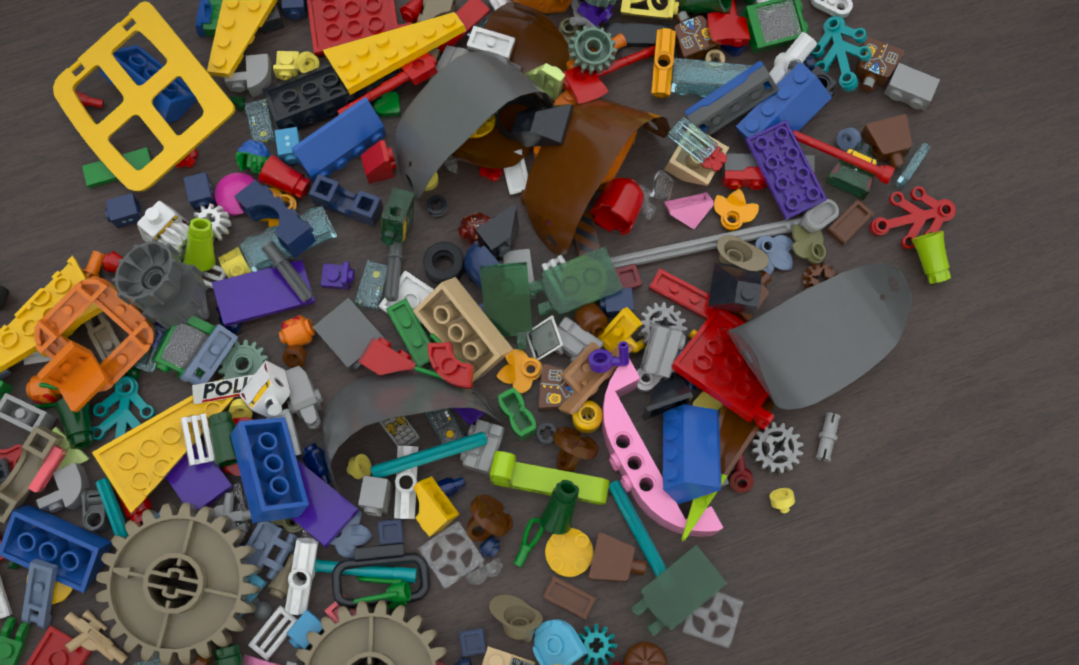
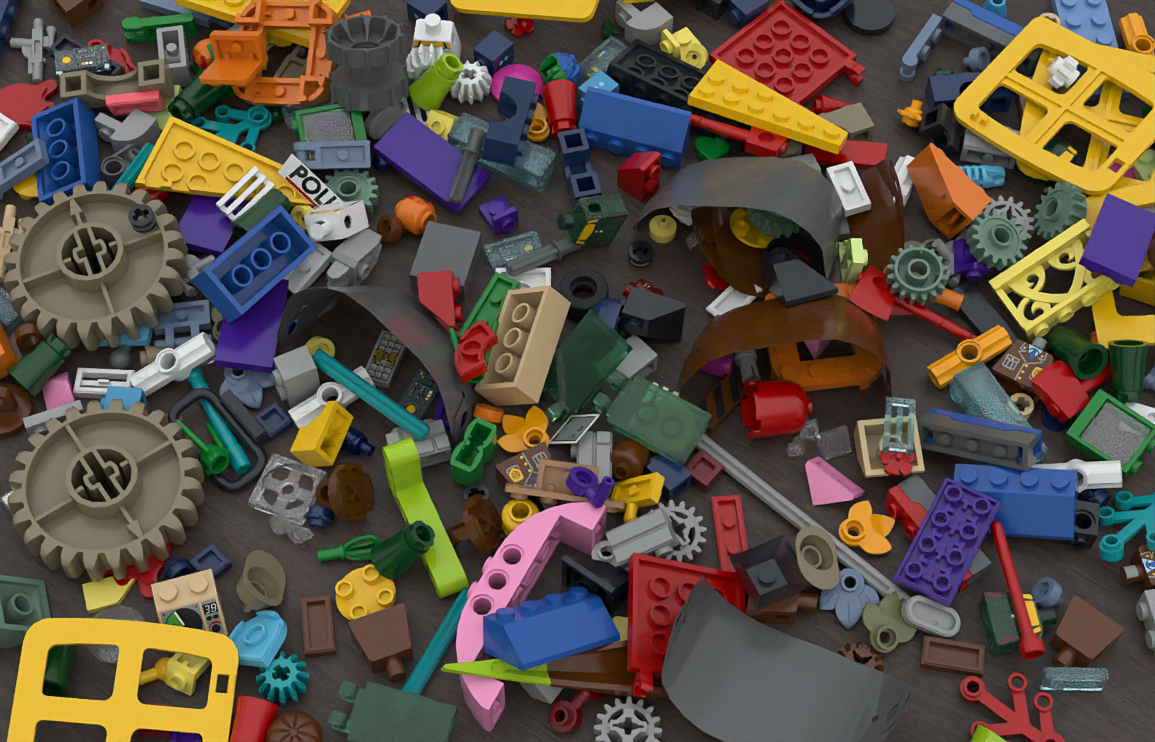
camera: 55 degrees right, 15 degrees down
(168, 522) = (139, 225): none -> black bush
(490, 386) = (488, 413): none -> orange tile

